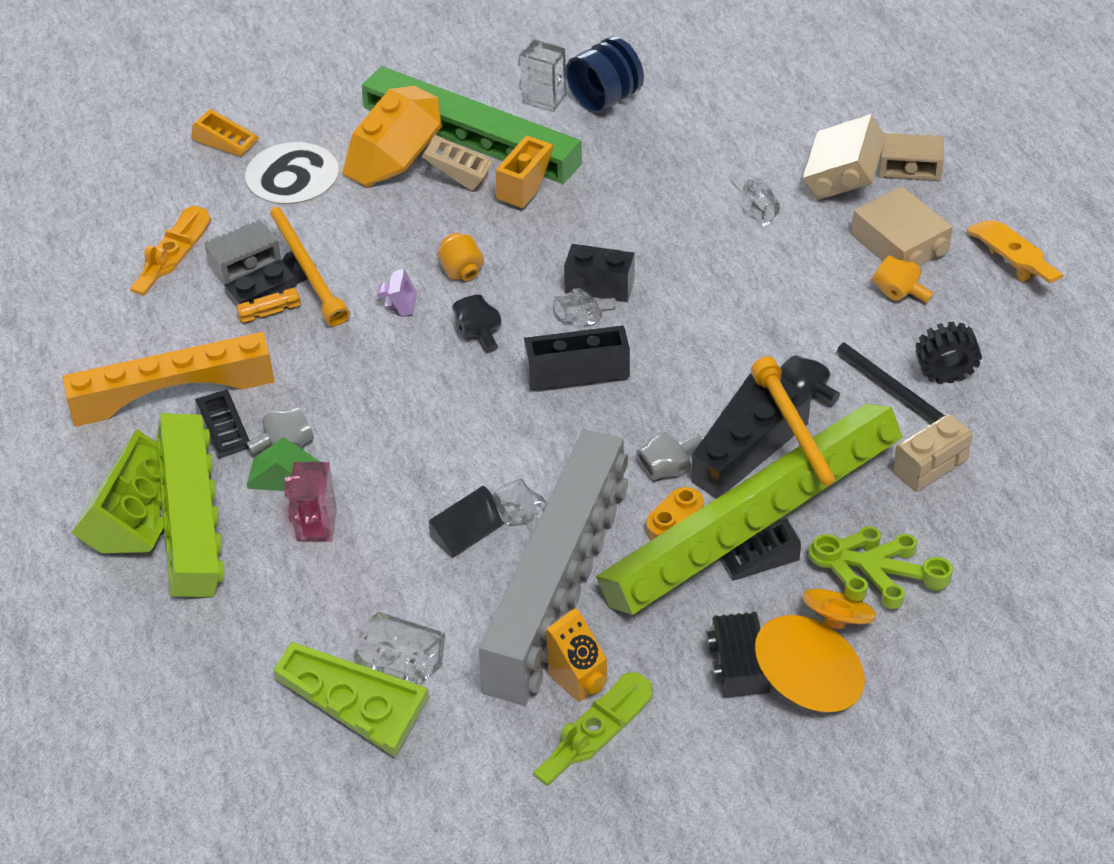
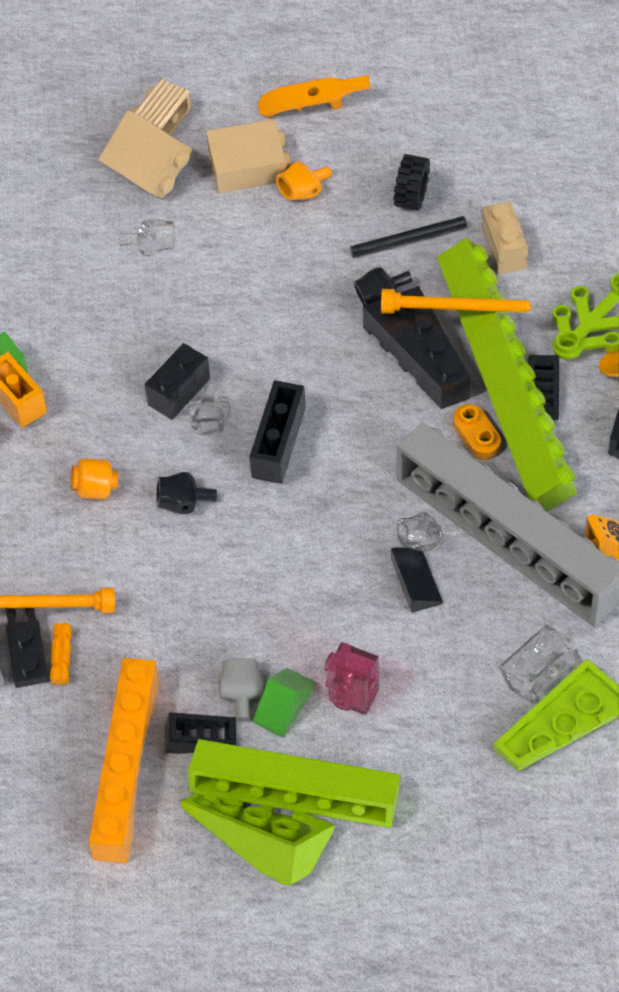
camera: 65 degrees left, 10 degrees up
(400, 293) = (112, 542): lavender tile -> none
(665, 456) = (412, 410): light grey piece -> none

